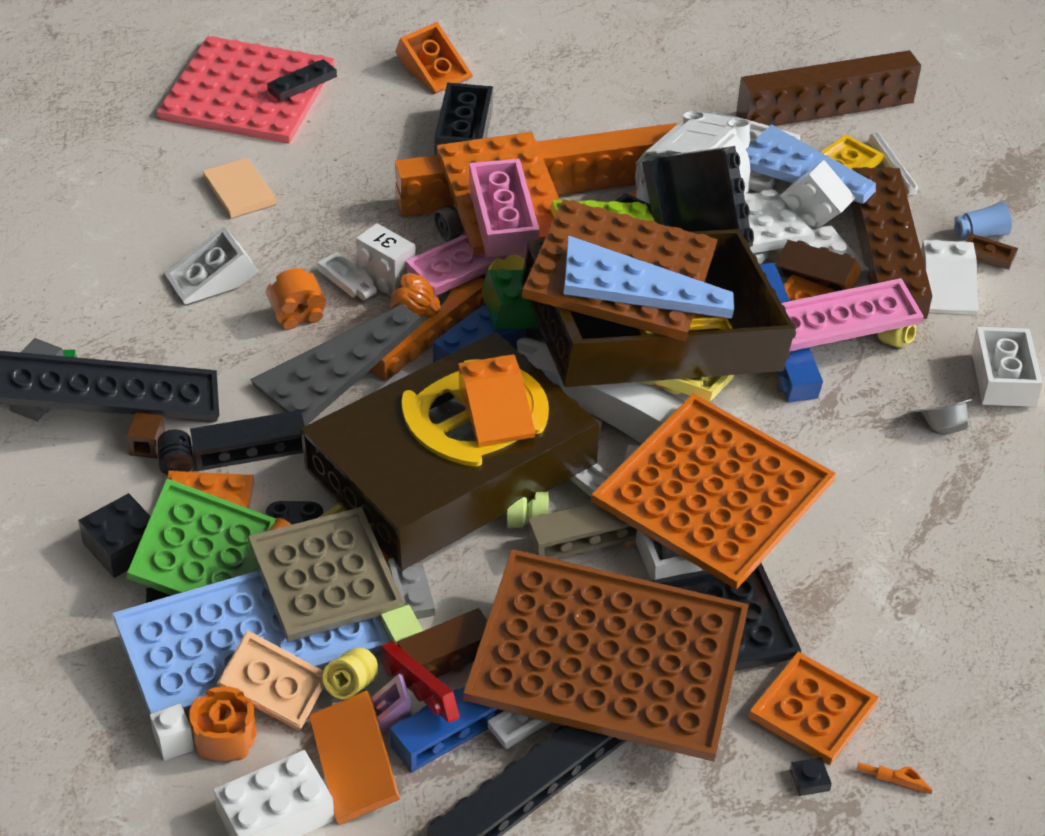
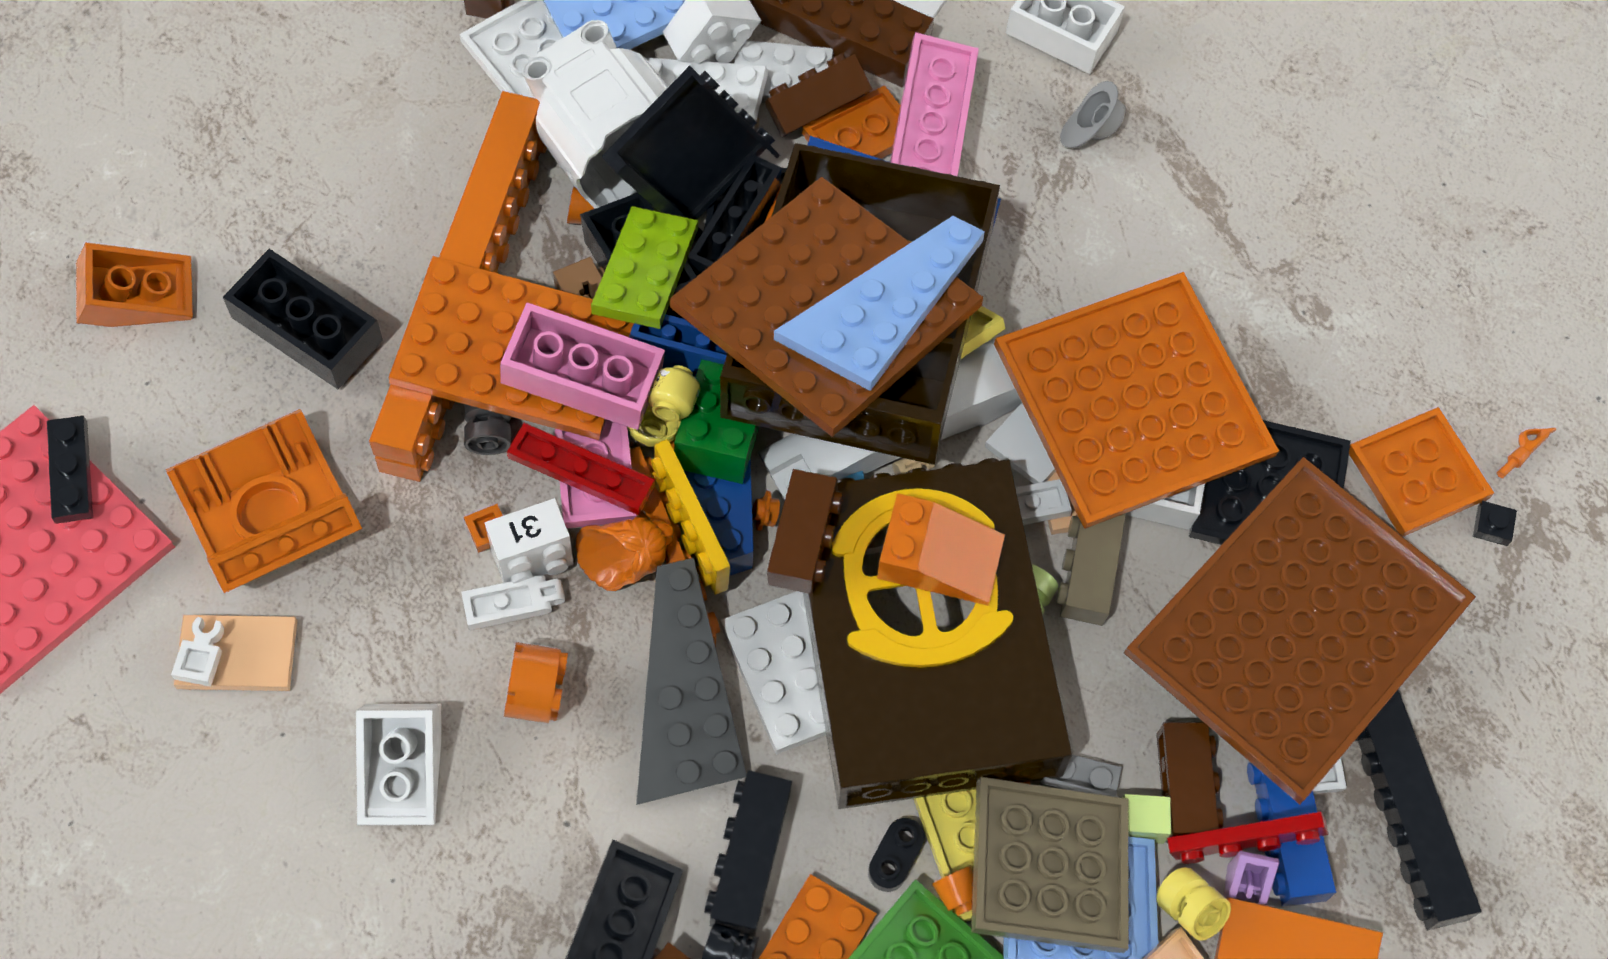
camera: 65 degrees left, 20 degrees up
(223, 167) = (199, 659): none -> white plate
(338, 153) = (263, 500): none -> orange panel
(443, 249) = (581, 468): none -> red plate
(448, 309) = (686, 509): none -> yellow plate
(463, 338) = (804, 532): none -> reddish brown brick
(513, 251) = (673, 393): none -> light yellow head

